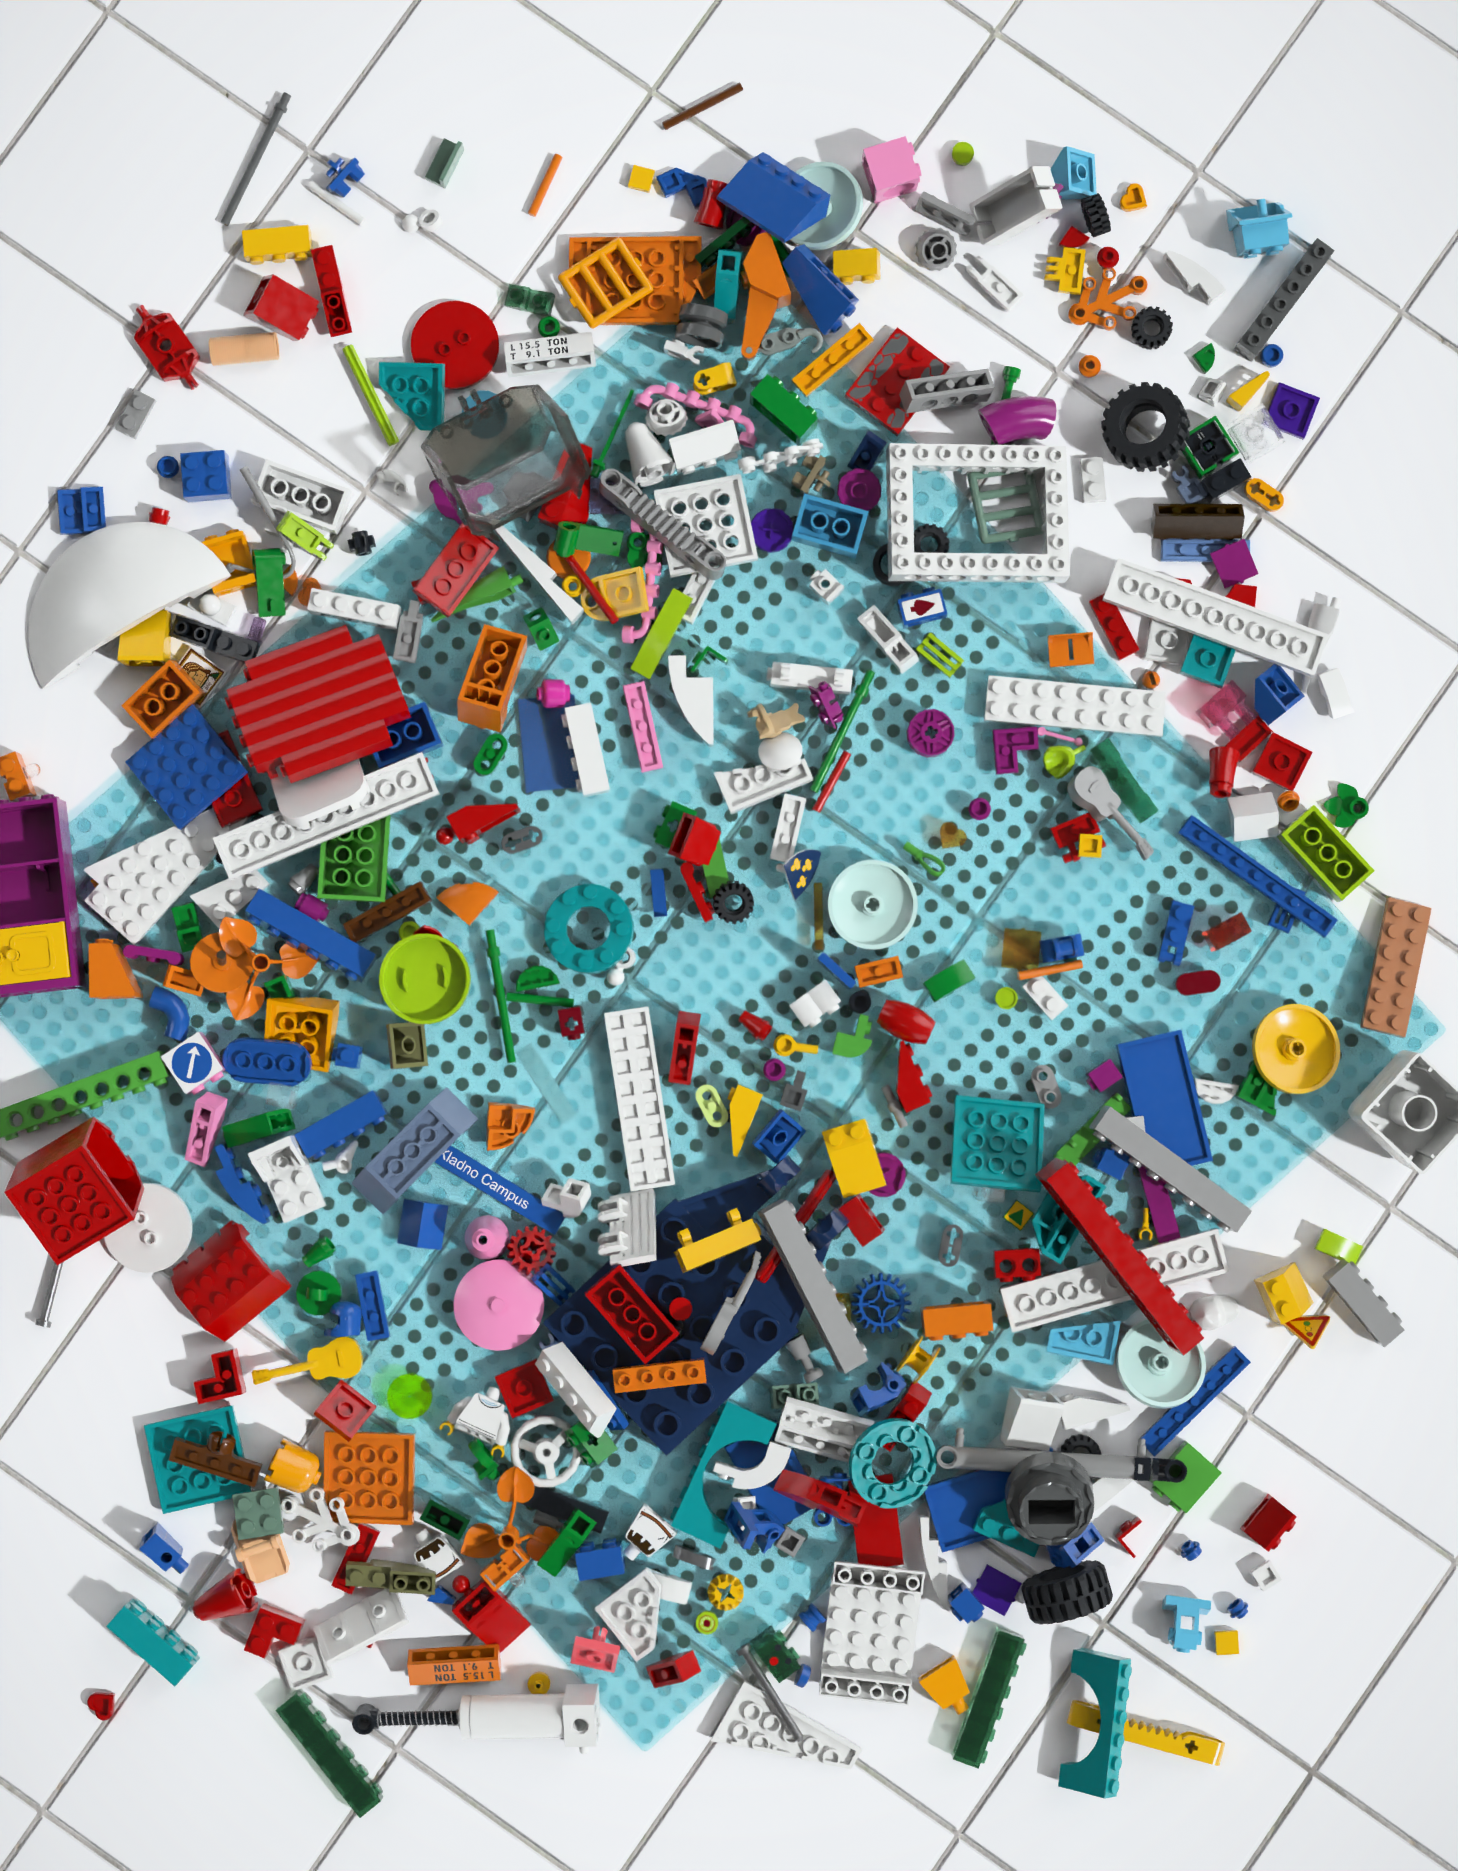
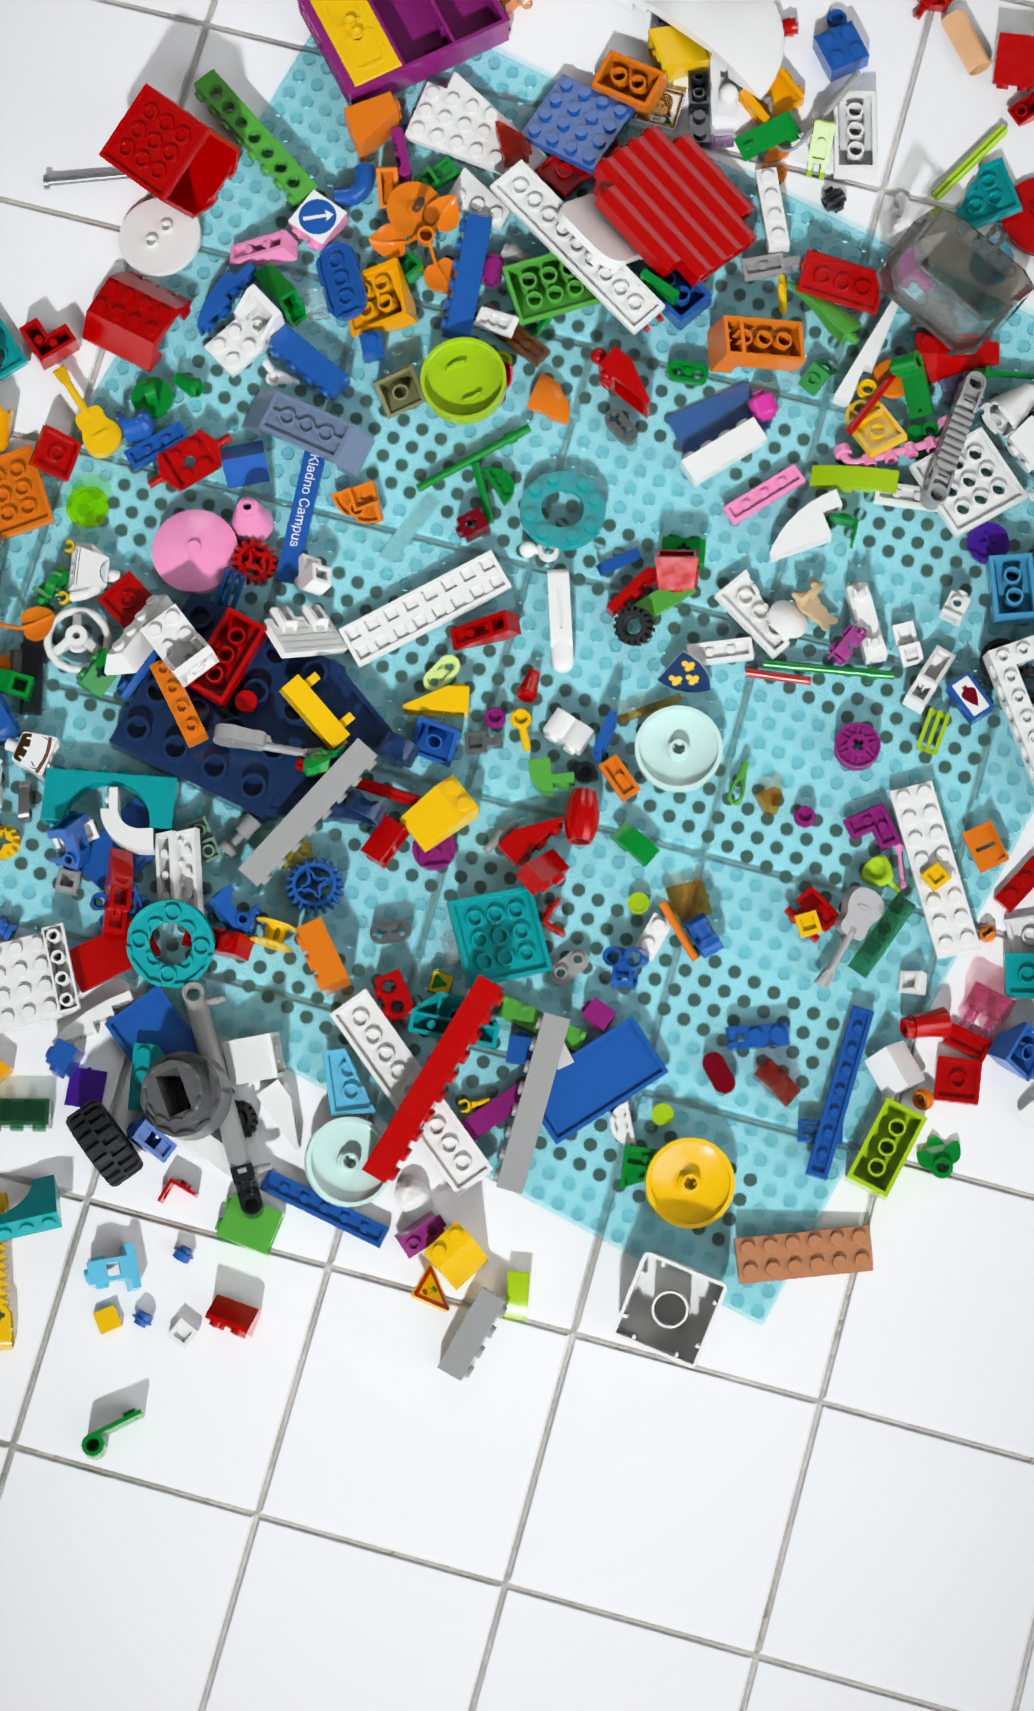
camera: 75 degrees right, 10 degrees down
(189, 841) = (512, 145): none -> clear red slope
(371, 924) = (496, 321): none -> white plate
(400, 750) = (660, 287): none -> green tile
(414, 1292) = (200, 447): none -> red plate
(443, 631) = (782, 294): none -> yellow piece
(610, 1357) = (179, 645): none -> white bracket
(699, 971) = (560, 620): none -> white piece
(771, 1258) = (319, 762): none -> green piece
(844, 646) = (907, 644): none -> white slope
(949, 1078) = (543, 872): none -> red brick
(987, 1087) = (548, 913): none -> red bracket
(1069, 1033) = (625, 965): none -> blue piece
(1085, 708) = (935, 876): none -> yellow tile
(1175, 768) = (912, 982): none -> white slope
(1218, 1050) = (662, 1114): none -> lime tile
(1252, 1318) = (421, 1233): none -> magenta brick
(1343, 1693) = (94, 1444): none -> green door

